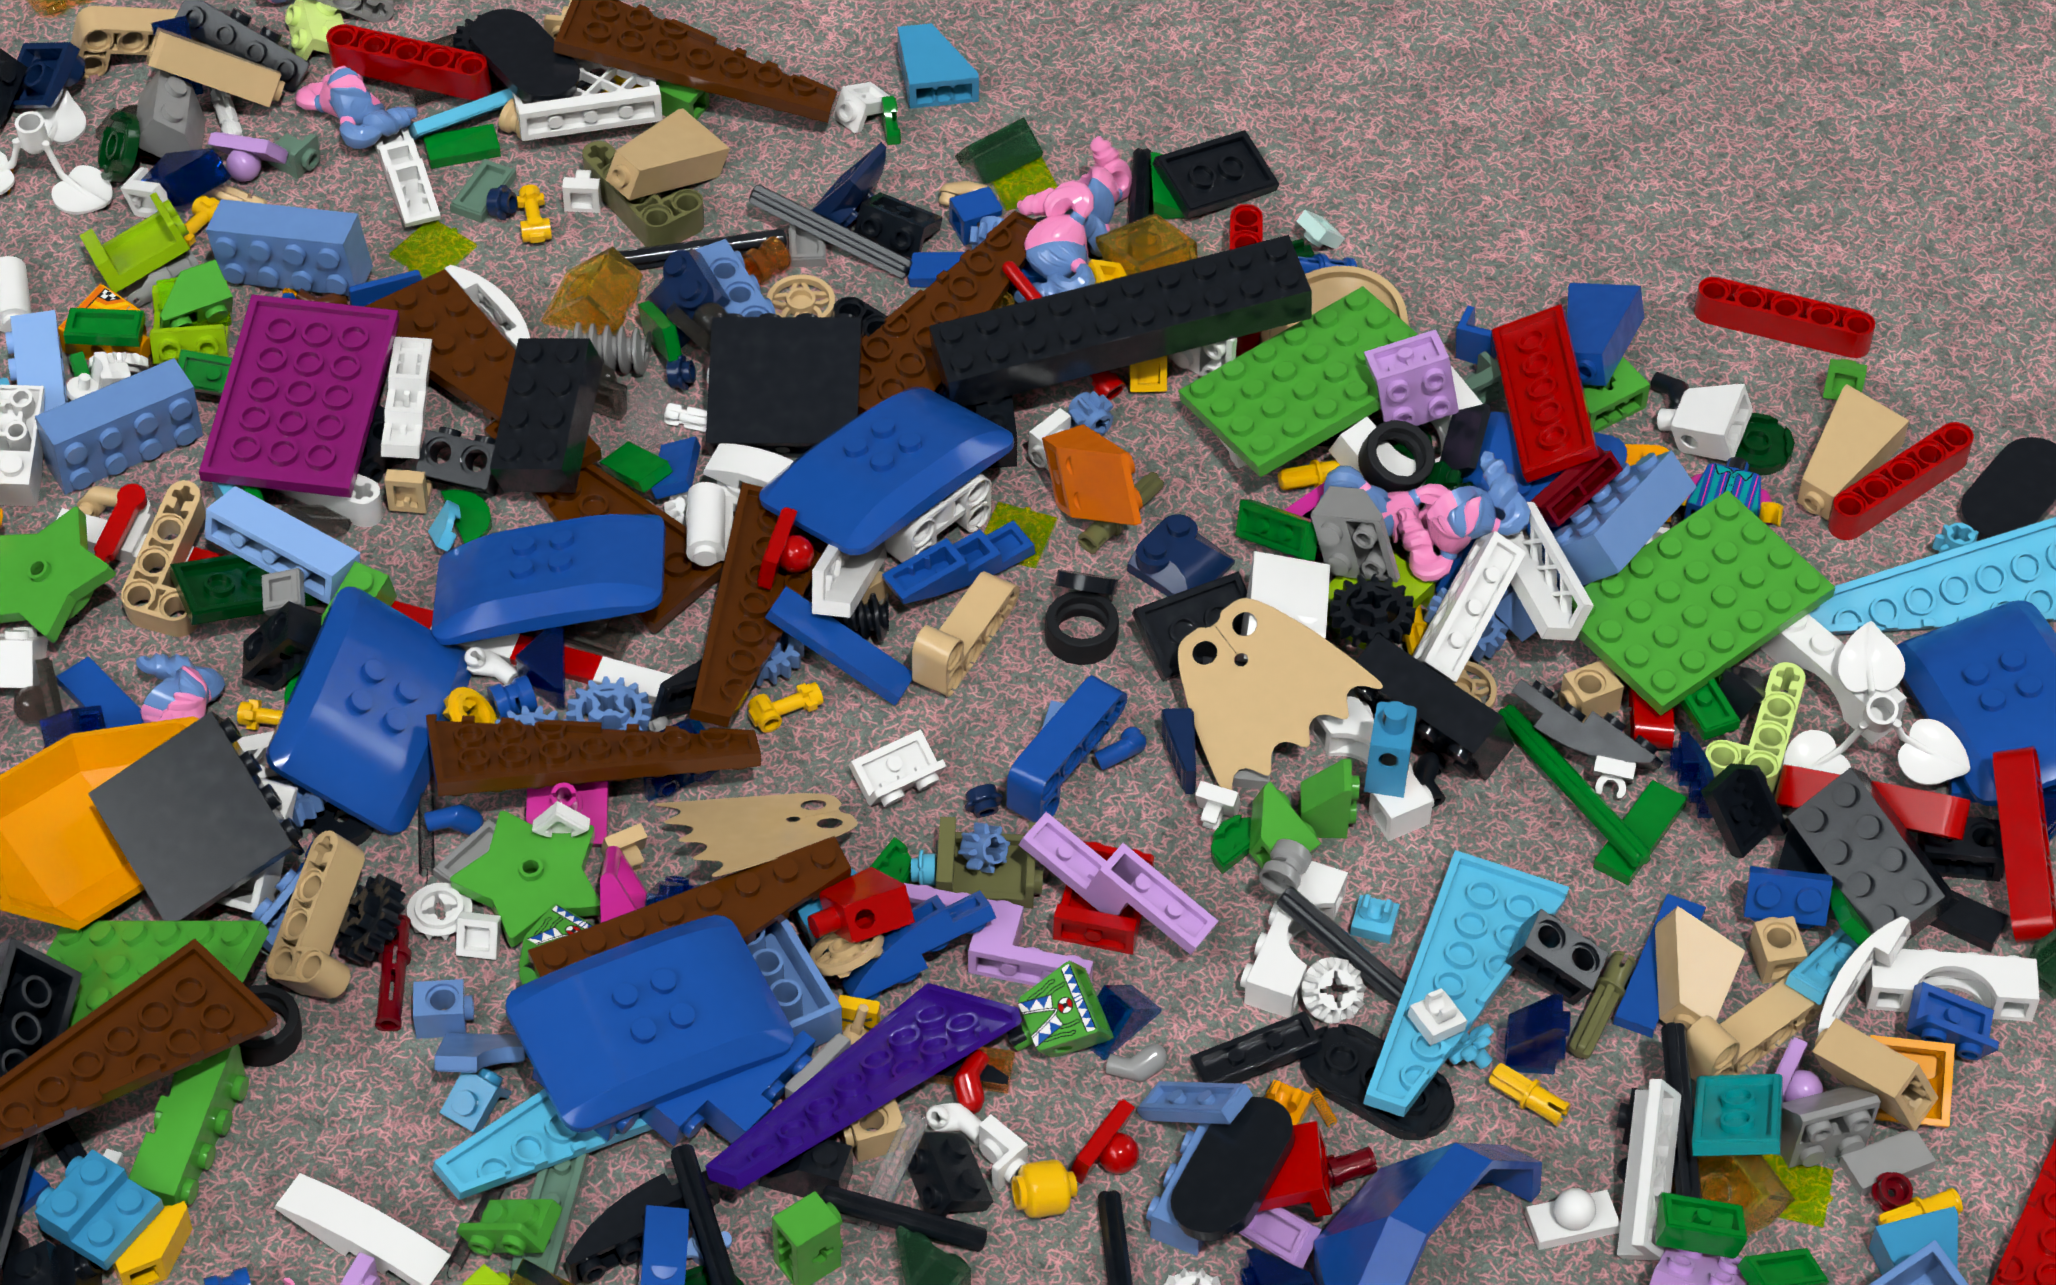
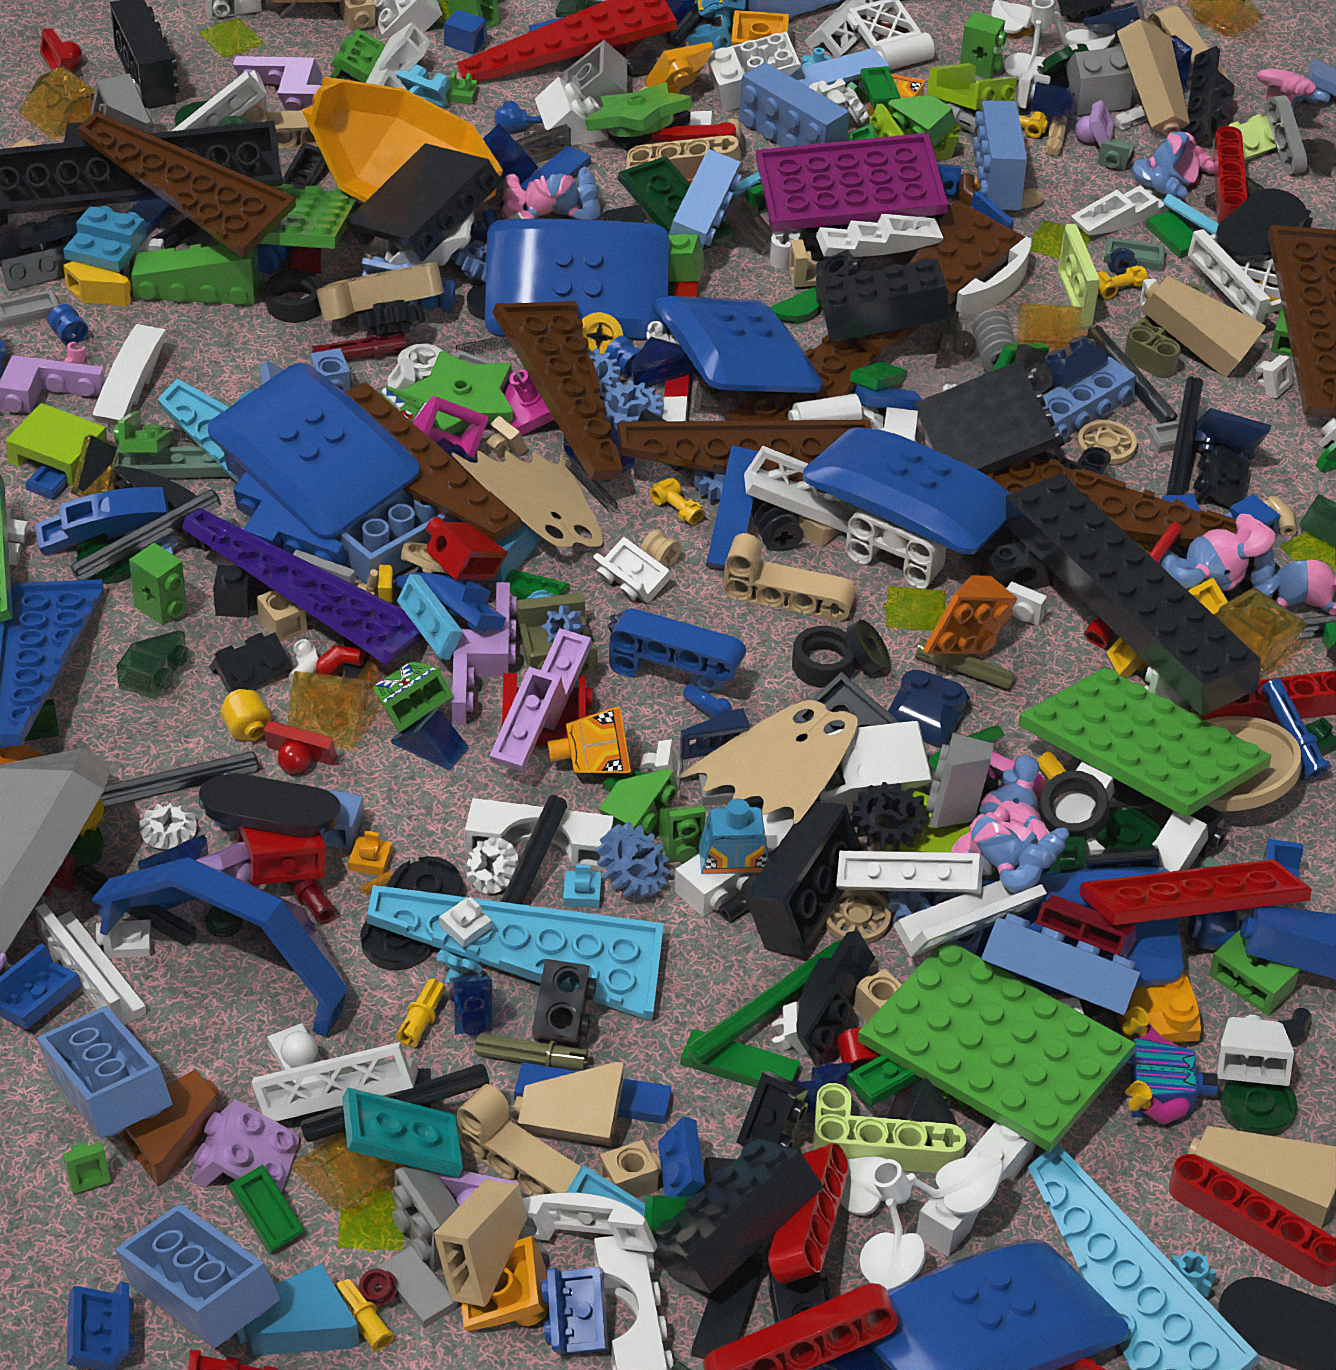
camera: 75 degrees right, 5 degrees down
(53, 211) = (983, 44): none -> bright green brick
(282, 587) = (658, 208): light grey tile -> none
(442, 526) = (777, 292): medium azure tile -> none
(457, 817) = (503, 350): blue arm -> none
(532, 239) = (1078, 273): none -> yellowish green tile
(560, 819) = (500, 385): white tile -> none
(717, 789) = (588, 482): none -> black piece
(746, 131) = (1276, 375): none -> white tile
(768, 258) = (1137, 411): clear orange wheel -> none
(784, 549) = (800, 442): red tile -> none
(868, 735) = (660, 548): none -> tan wheel
(896, 1161) = (239, 625): clear axle -> none
(915, 1220) = (197, 639): black axle -> none
(944, 969) = (430, 616): none -> medium azure tile
(957, 565) = (850, 560): blue slope -> none
(1002, 1149) = (278, 690): white bracket -> none
(1049, 1104) = (328, 705): none -> clear yellow slope
(1091, 411) = (1059, 624): medium blue gear -> none
(1140, 1066) = (387, 761): light grey arm -> none
(1185, 847) = (594, 744): none -> torso
(1194, 1102) = (338, 780): medium blue tile -> none
(1258, 1051) = (416, 827): black tile -> none
(1286, 864) = (588, 796): light grey wheel -> none
(1364, 856) = (633, 861): none -> medium blue gear
(1413, 379) = (1147, 782): lavender bracket -> none
(1700, 1225) = (290, 1127): green slope -> none

